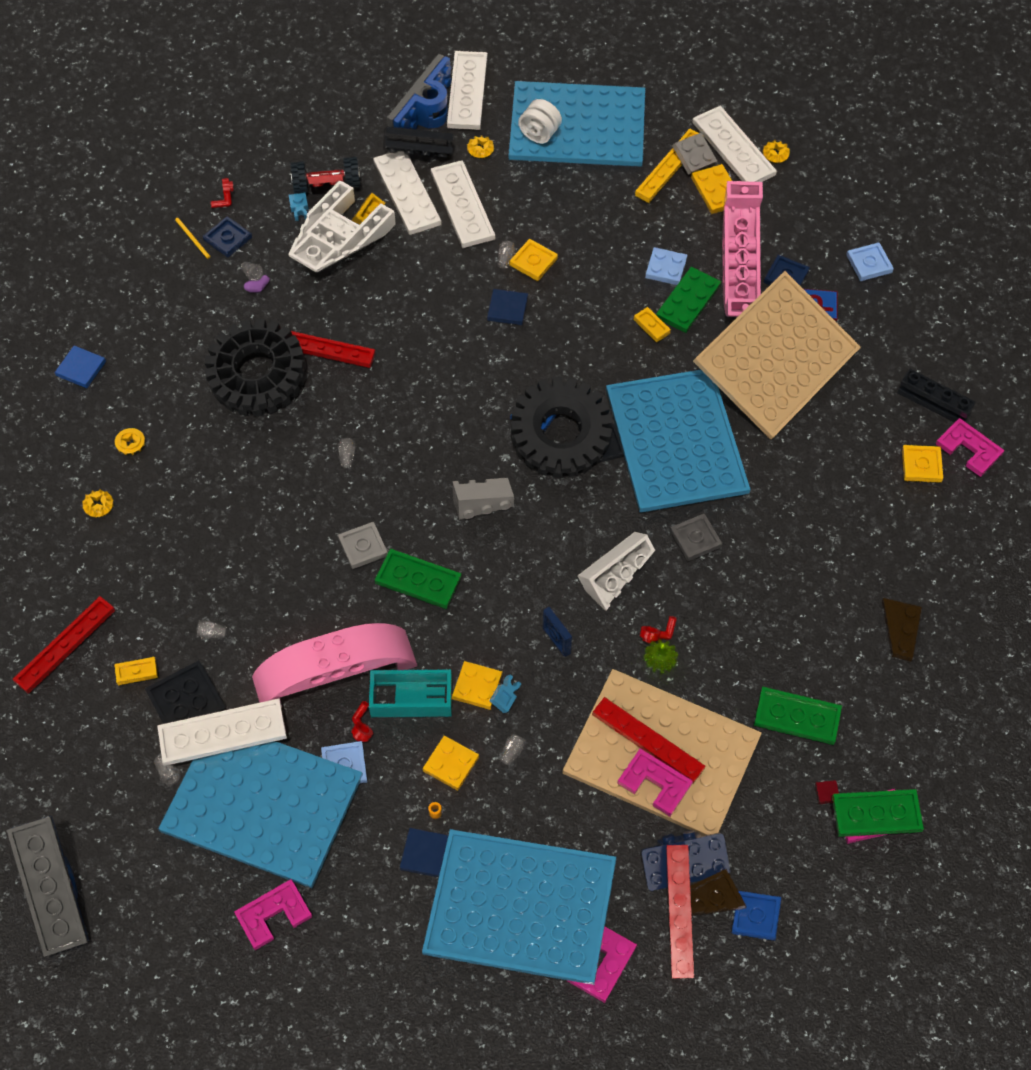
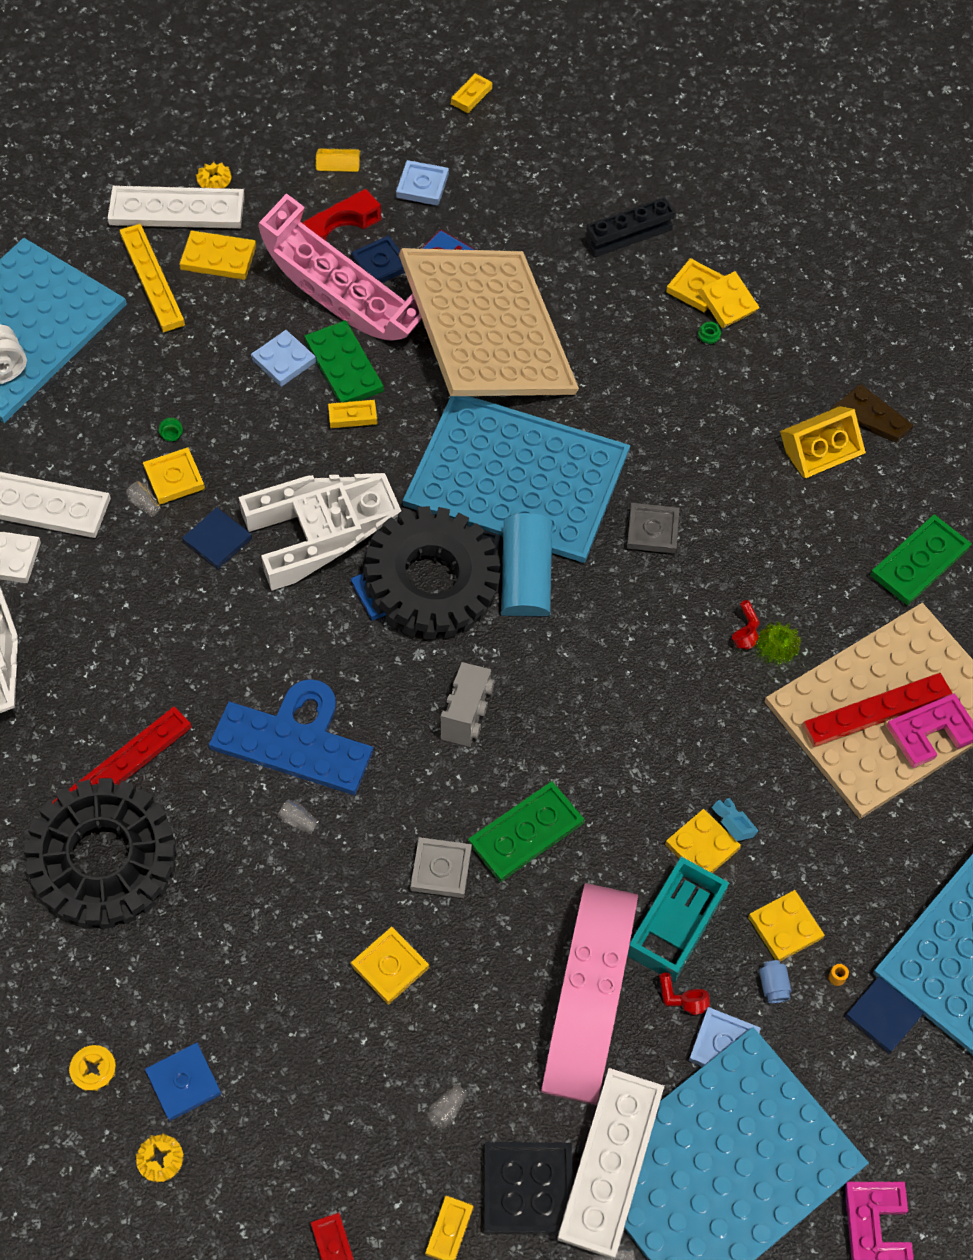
camera: 60 degrees left, 0 degrees up
(148, 489) = (183, 1081): none -> blue plate
(281, 552) = (390, 965): none -> yellow plate
(393, 427) = (294, 747): none -> blue plate
(404, 773) = (775, 982): none -> medium blue brick
(512, 748) = (806, 850): clear cone -> none
(557, 632) = (695, 722): dark blue tile -> none
(560, 353) = (331, 512): none -> white wedge
(565, 239) = (170, 429): none -> green plate
(608, 478) = (526, 565): none -> dark azure brick
(615, 569) = (645, 622): white wedge -> none
(694, 153) = (158, 244): light grey plate -> none
(813, 238) = (358, 210): none -> red arch
(849, 207) = (338, 160): none -> yellow slope
(849, 606) = (823, 441): none -> yellow slope
(887, 487) = (709, 332): none -> green plate
(924, 488) = (728, 299): none -> yellow plate
(972, 247) = (471, 93): none -> yellow plate
(985, 450) = (687, 233): dark pink plate -> none

